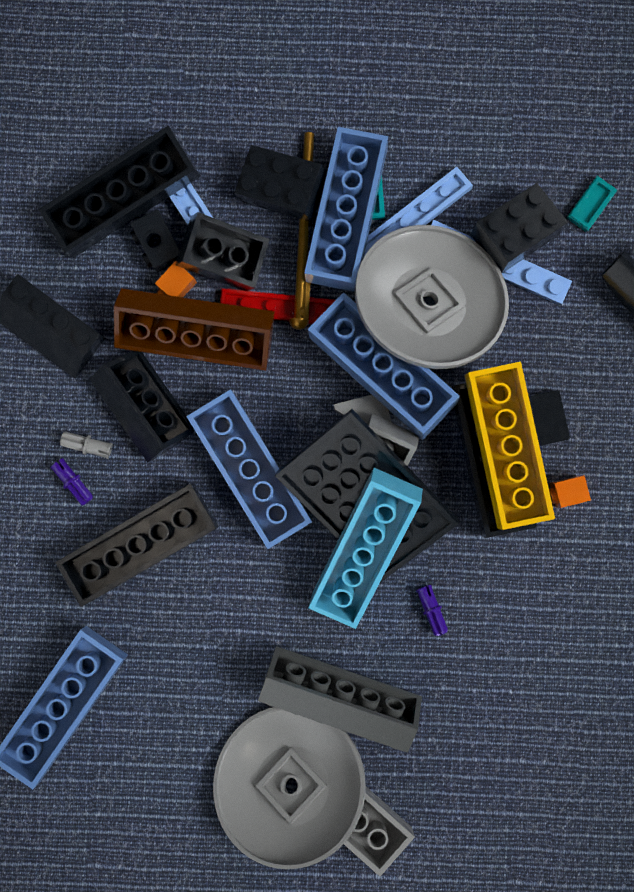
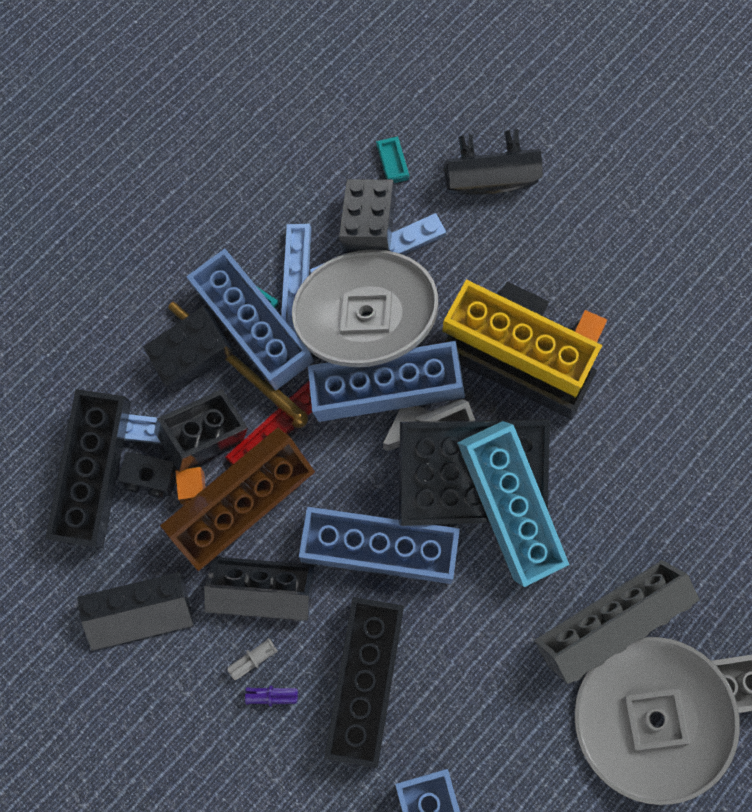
camera: 50 degrees left, 15 degrees down
(432, 610) = (599, 499): dark purple axle -> none

